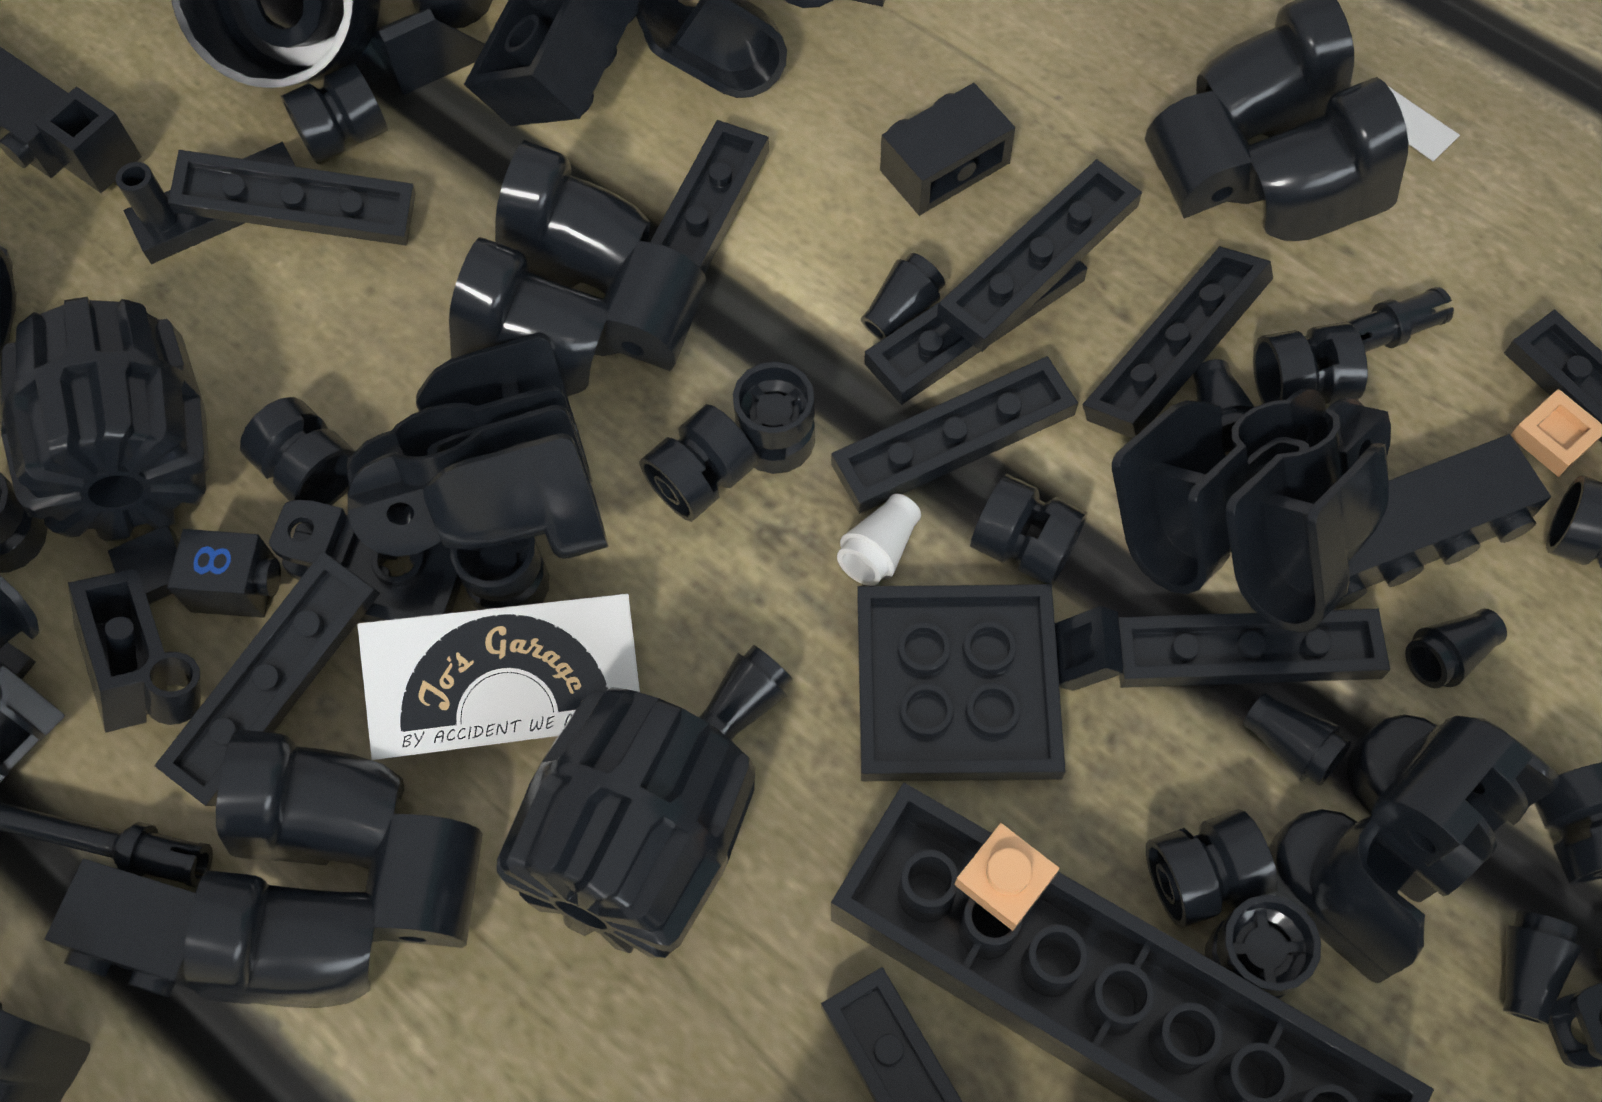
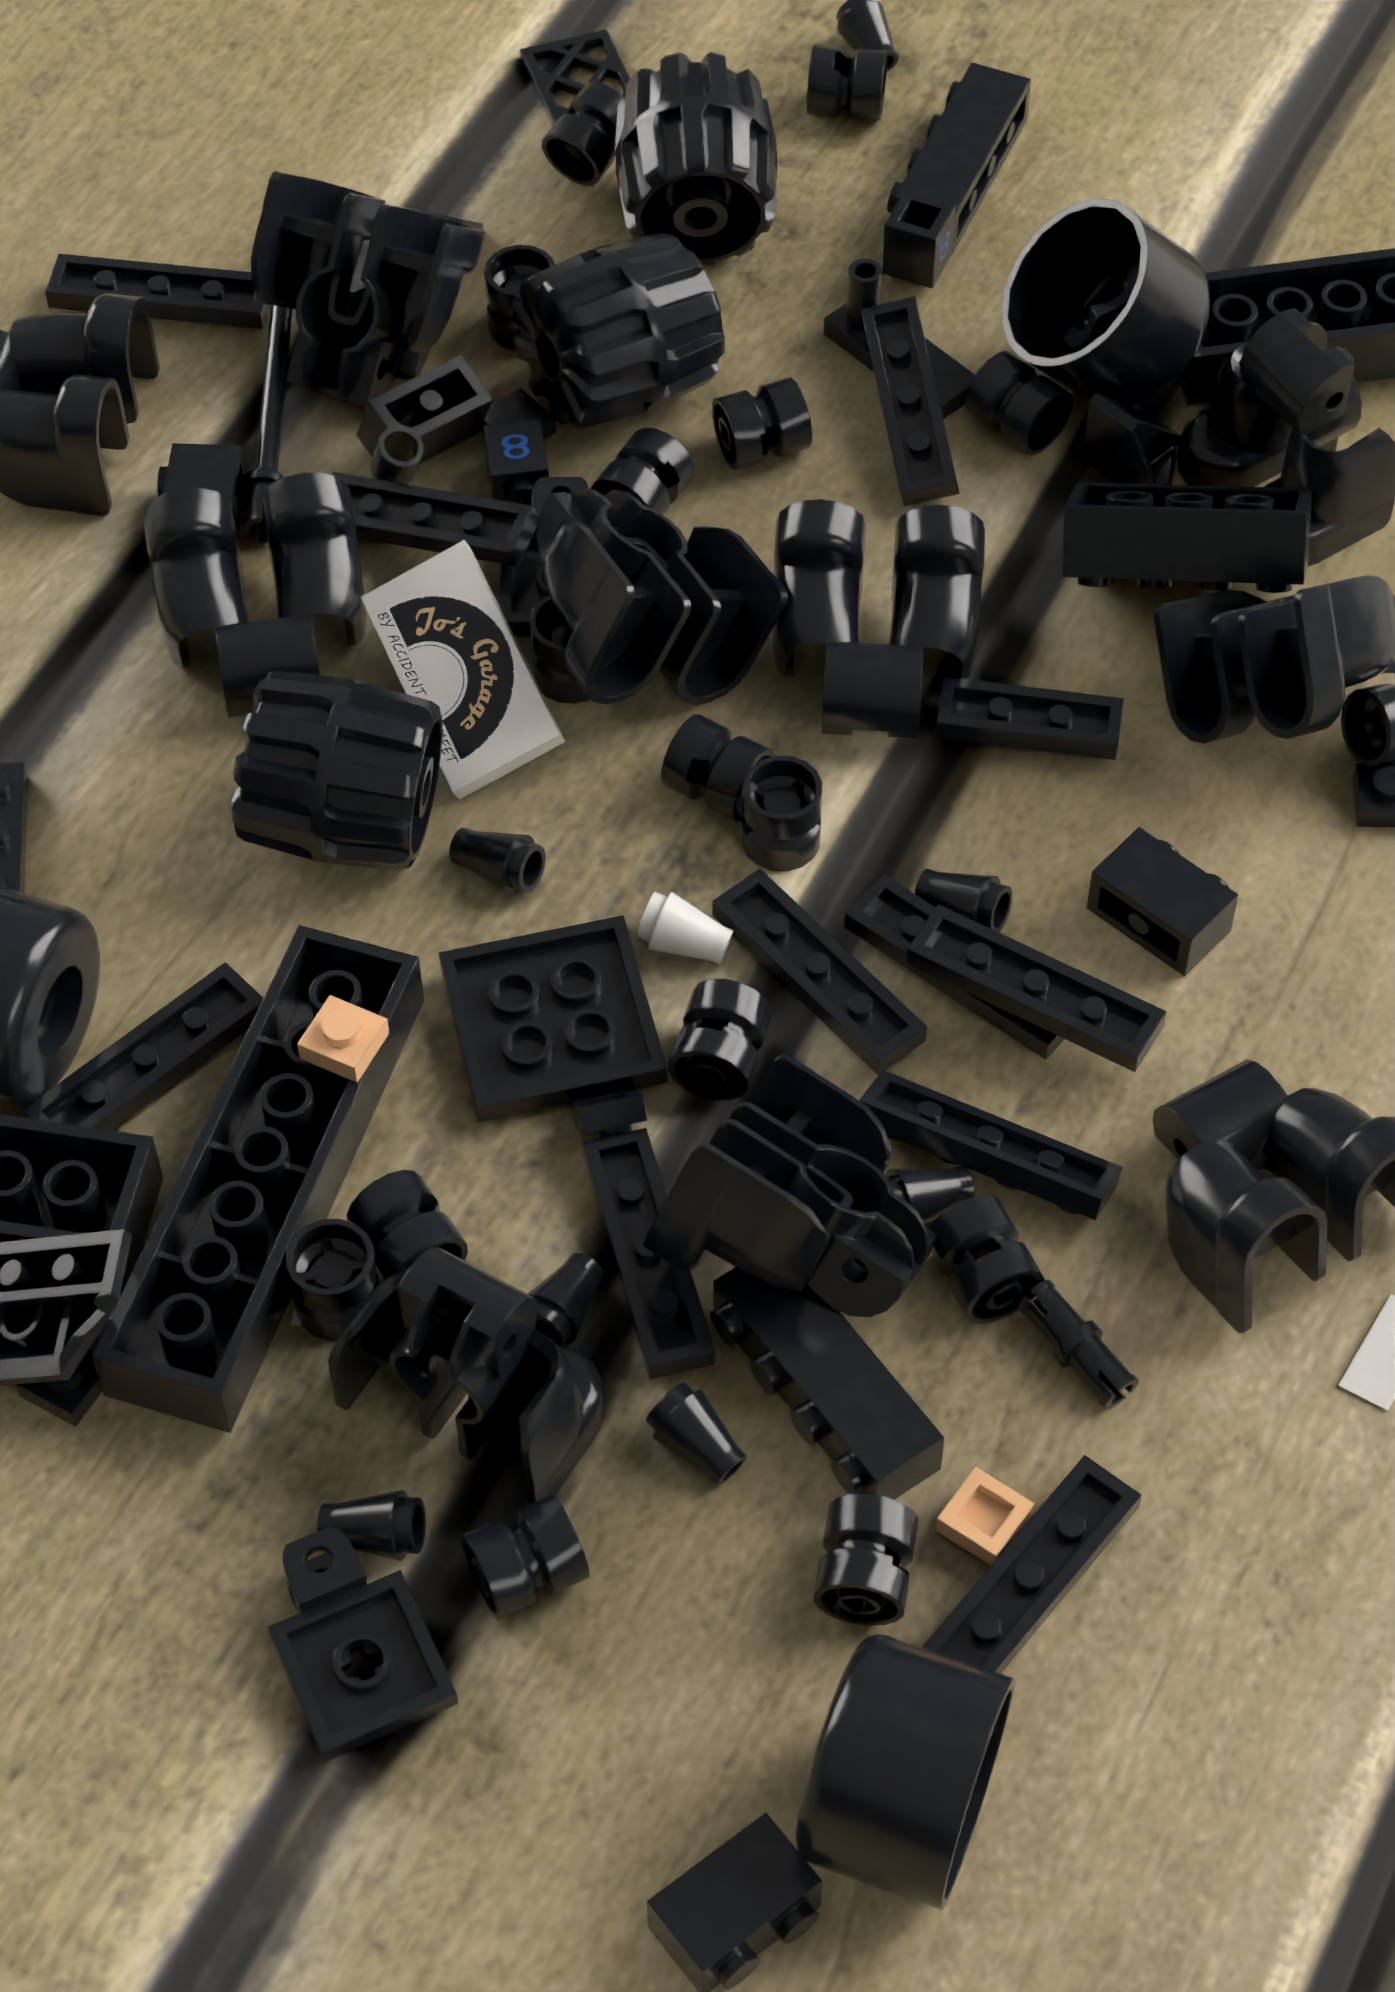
camera: 75 degrees right, 10 degrees down
(266, 330) = (756, 424): none -> black wheel

